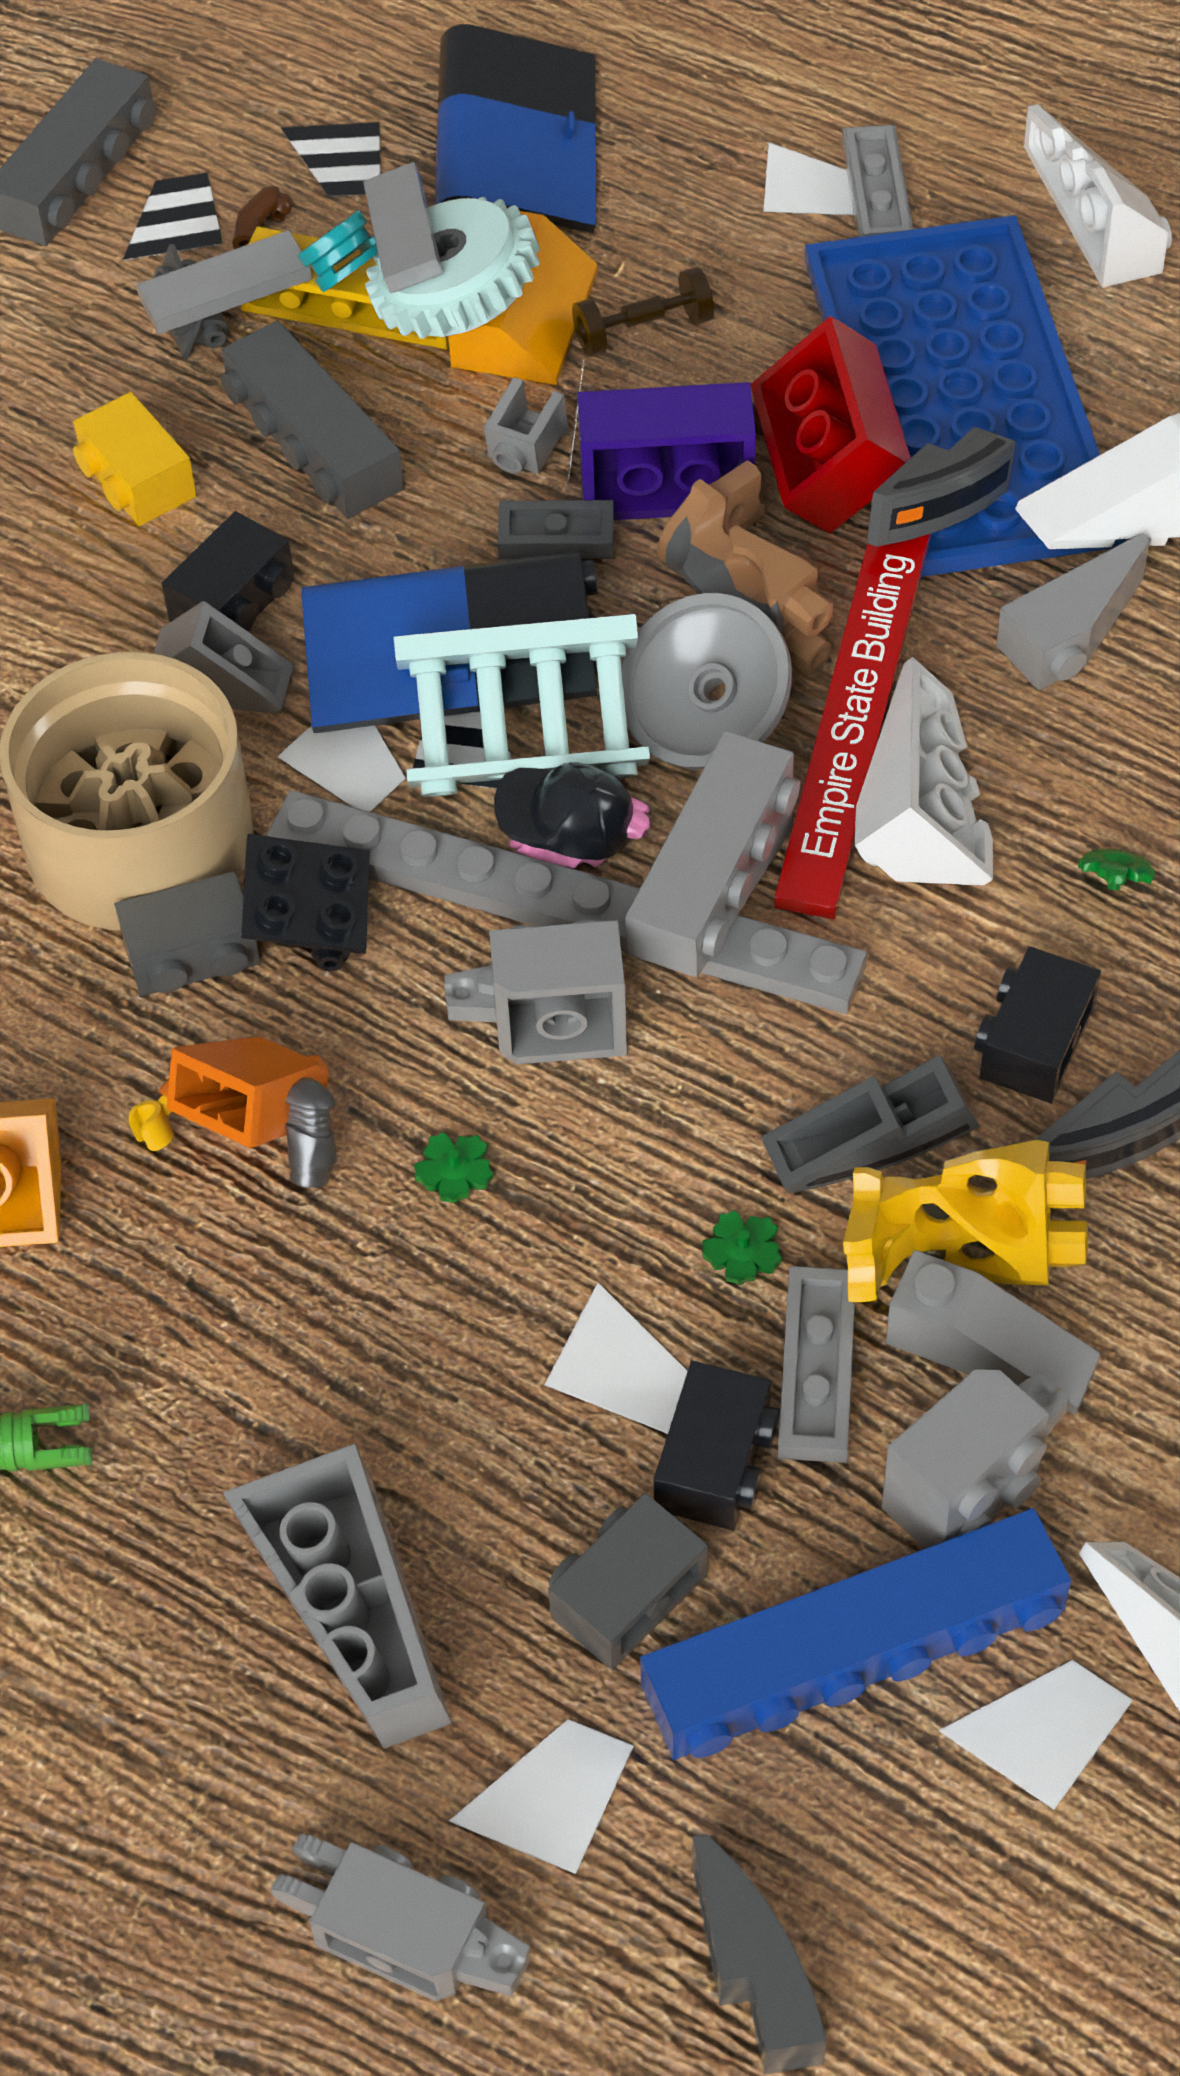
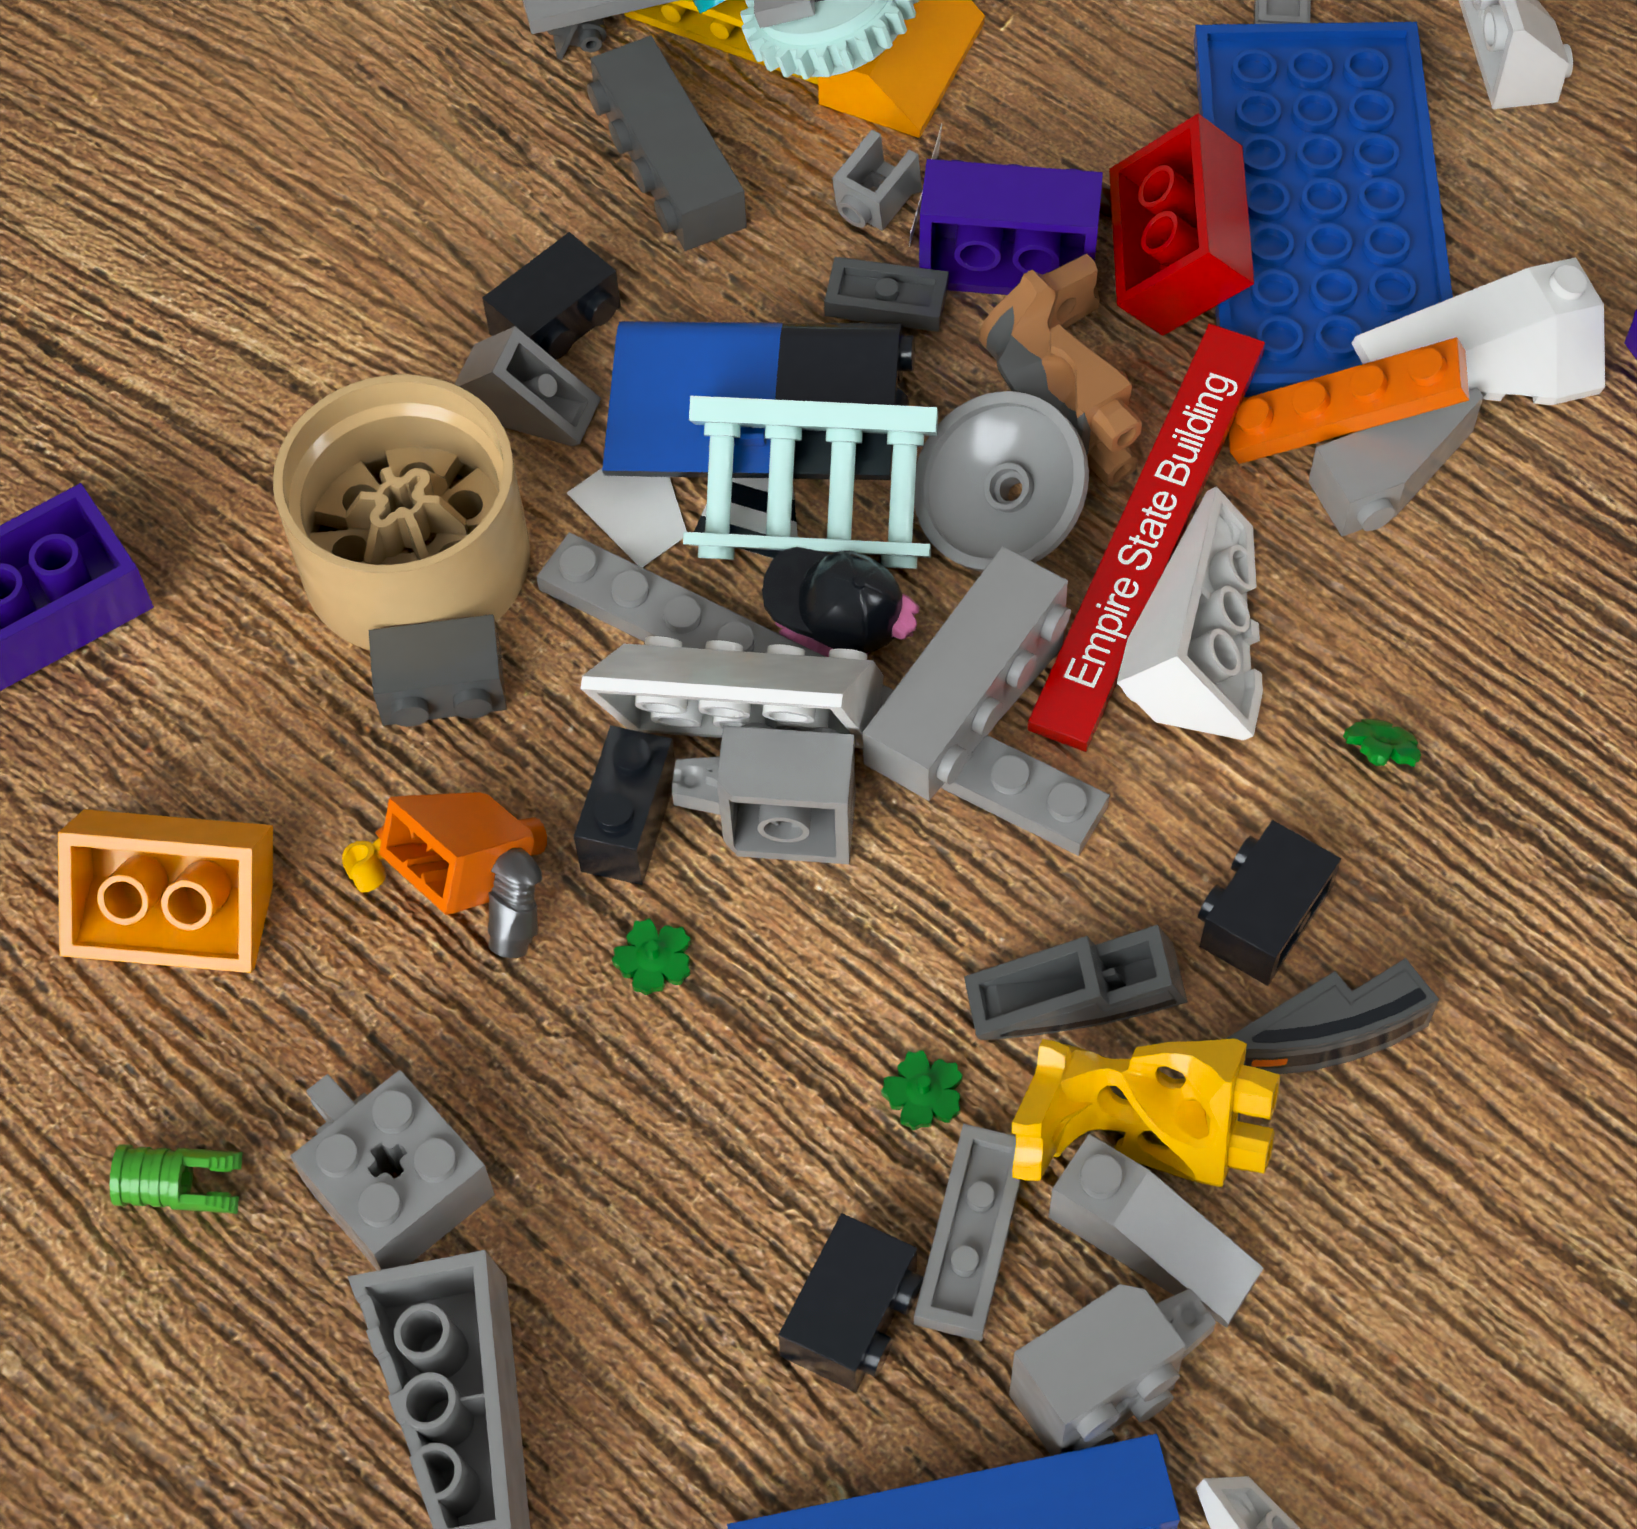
camera: 10 degrees right, 5 degrees up
(133, 459) = (485, 161): yellow brick -> none
(238, 1394) = (383, 1134): none -> light grey hinge
(306, 897) = (550, 643): black hinge -> none
(400, 1029) = (625, 805): none -> black brick
(449, 911) = (700, 690): none -> white slope
(618, 1365) = (775, 1195): white sticker -> none
(627, 1579) = (734, 1432): dark grey brick -> none
(694, 296) = (1073, 64): dark brown wheel -> none
(941, 487) = (1278, 311): dark grey slope -> none
(1024, 560) = (1350, 401): none -> orange plate

